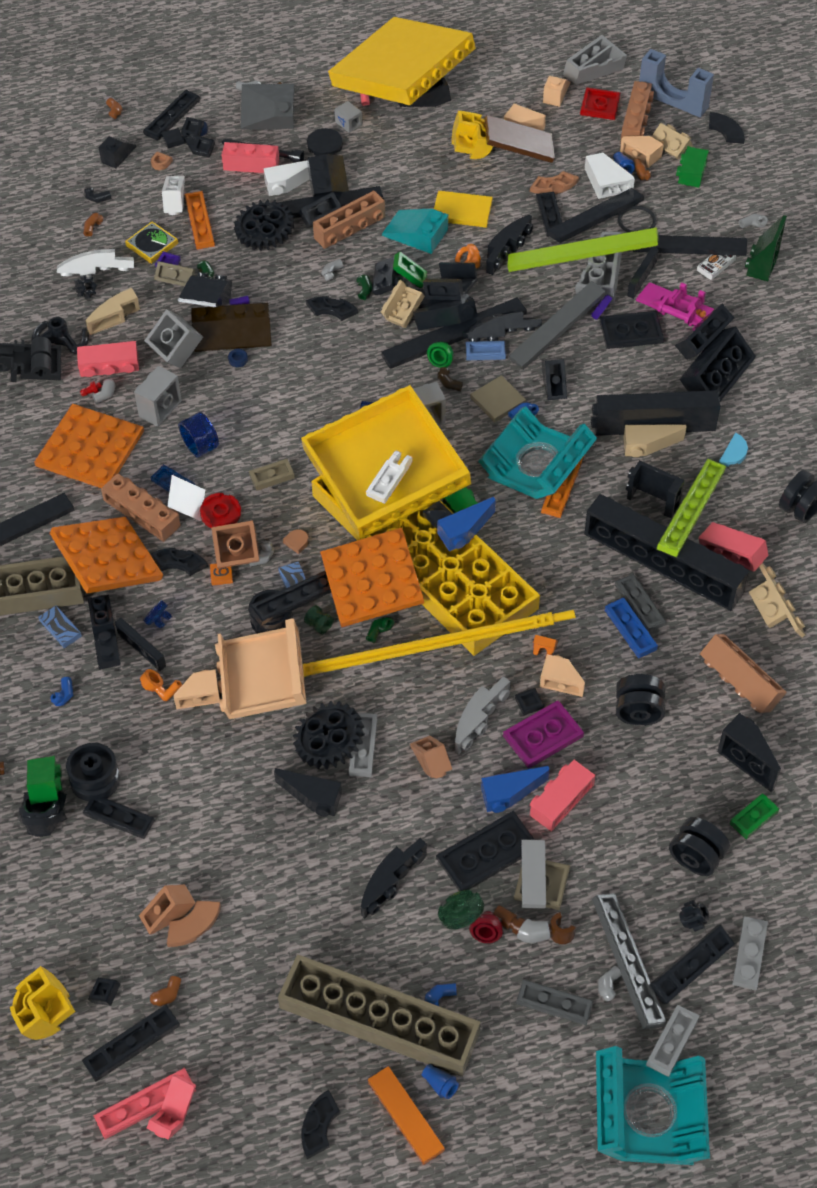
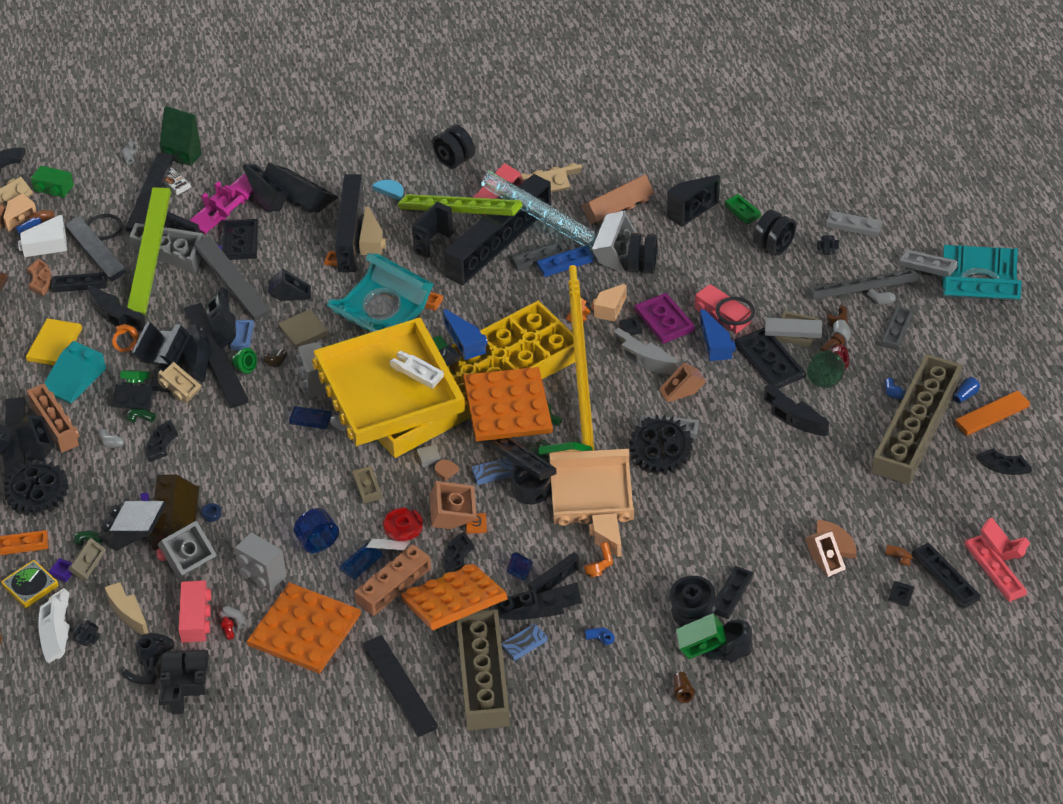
camera: 85 degrees left, 10 degrees down
(40, 1005) = (920, 627): yellow brick -> none
(305, 637) = (563, 447): none -> green tile
(314, 792) = (715, 459): black slope -> none
(316, 524) = (428, 455): none -> light grey tile
(532, 407) = (320, 311): blue arm -> none
(542, 821) = (739, 299): none -> black tyre
(674, 668) = (613, 241): none -> light grey slope
(683, 591) = (540, 209): none -> clear light blue tile
(692, 964) = (868, 252): black plate -> none

